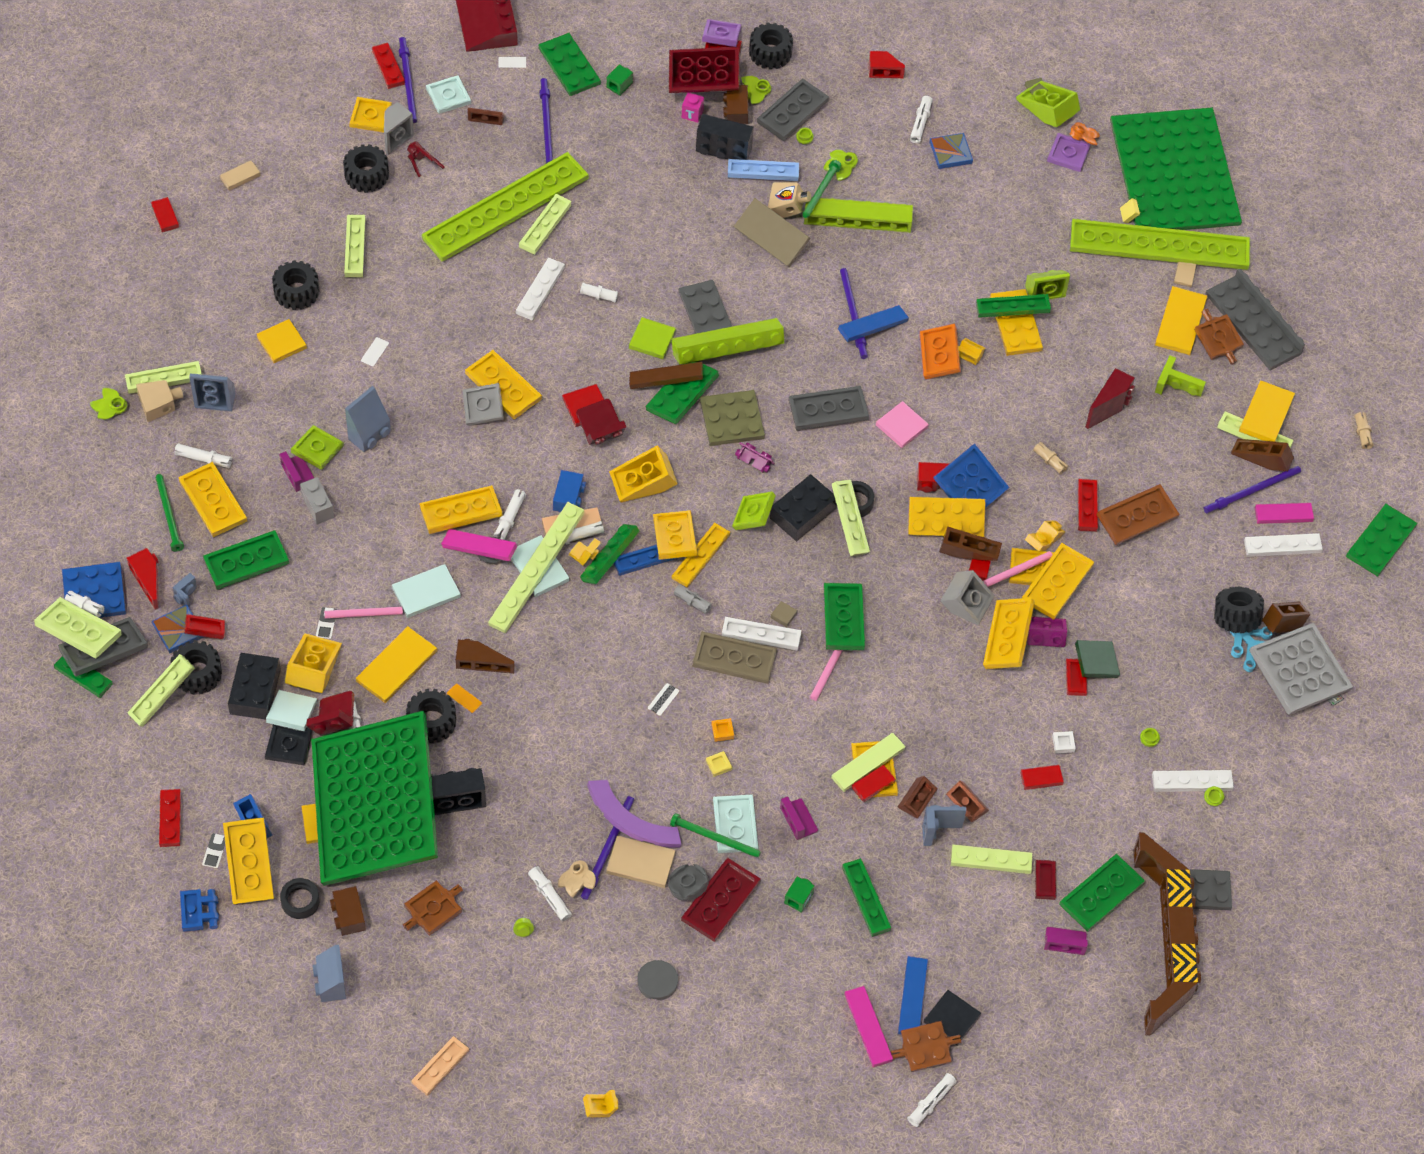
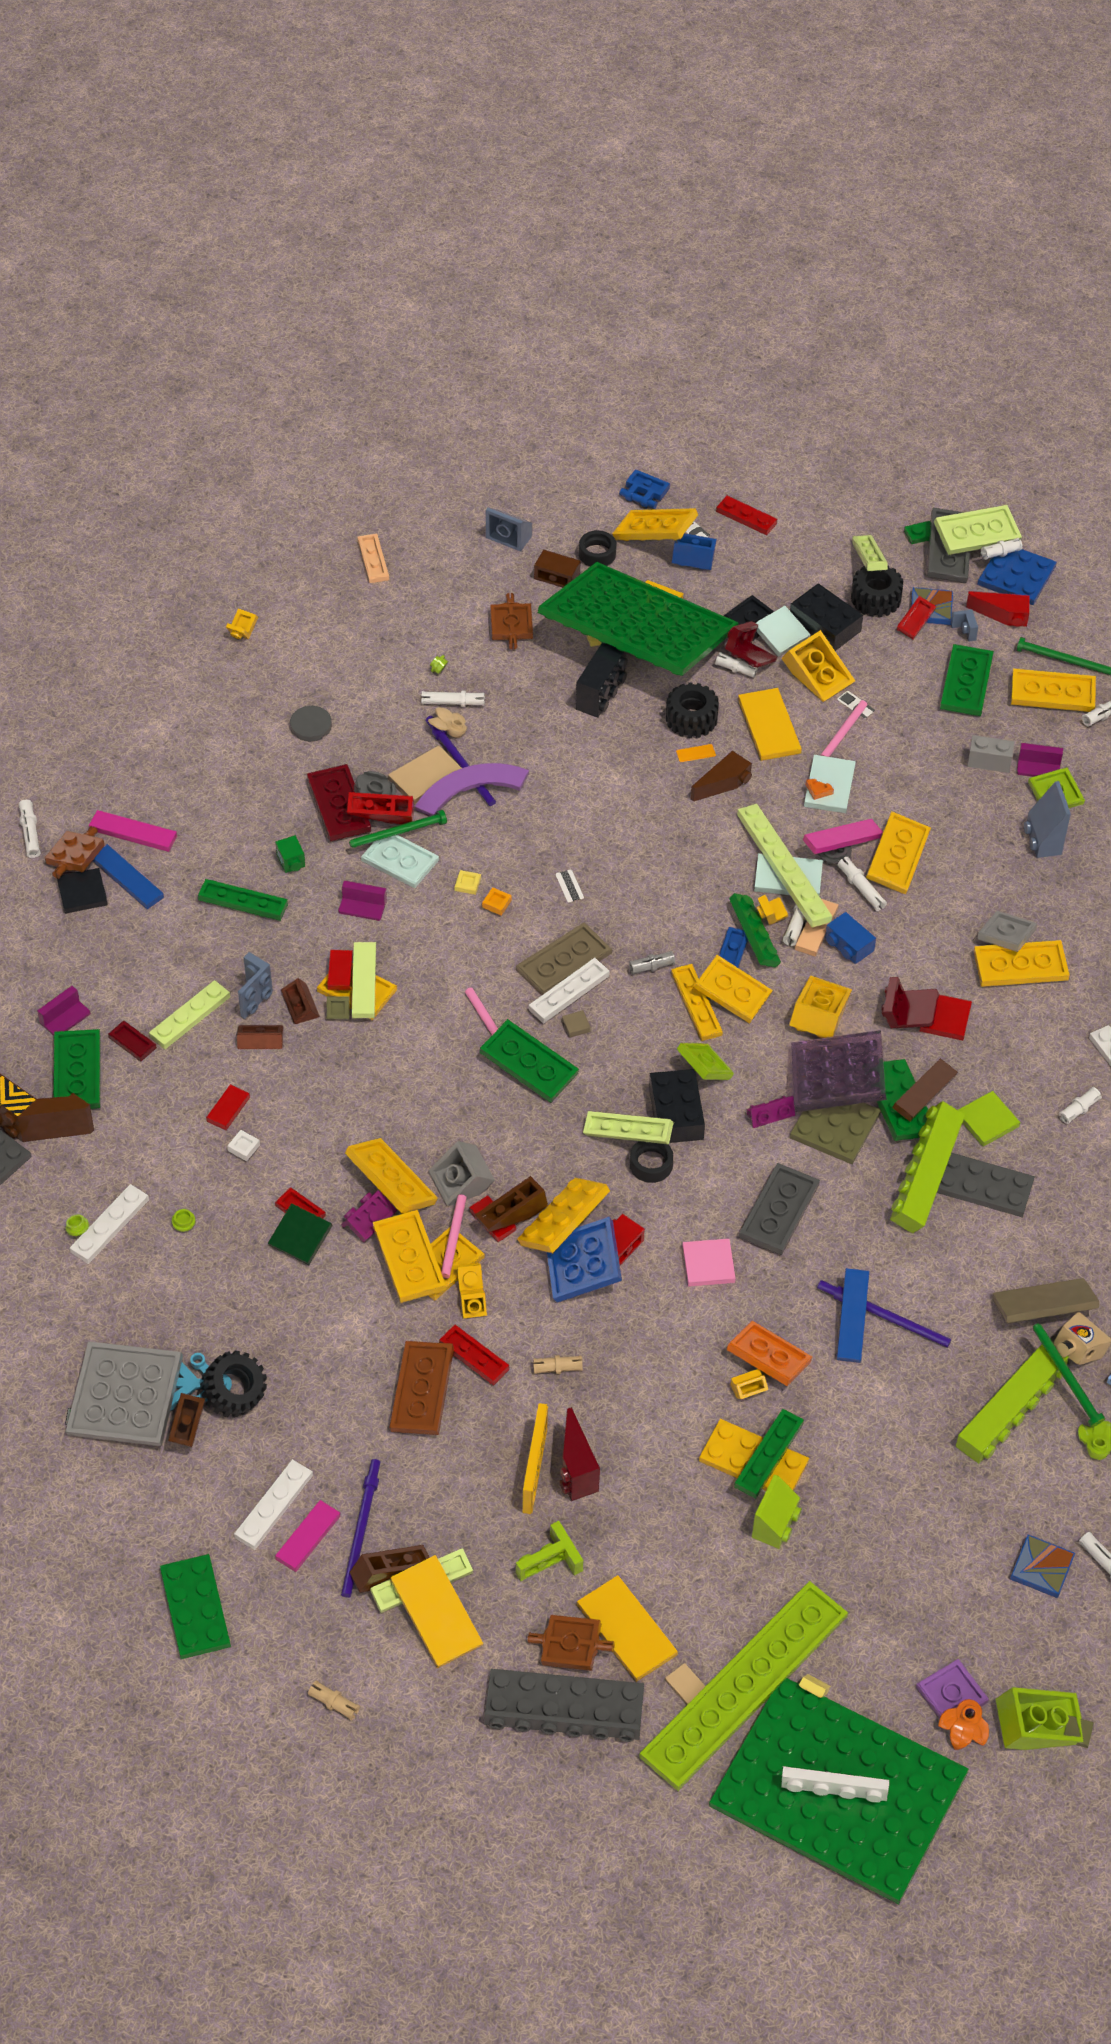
camera: 130 degrees right, 5 degrees down
(442, 589) = (819, 789): none -> orange tile
(697, 427) = (838, 1071): none -> clear purple plate
(706, 852) = (381, 807): none -> red slope
(903, 765) = (338, 1007): none -> olive tile
(1130, 418) = (535, 1458): none -> yellow tile
(1183, 160) = (833, 1783): none -> white plate

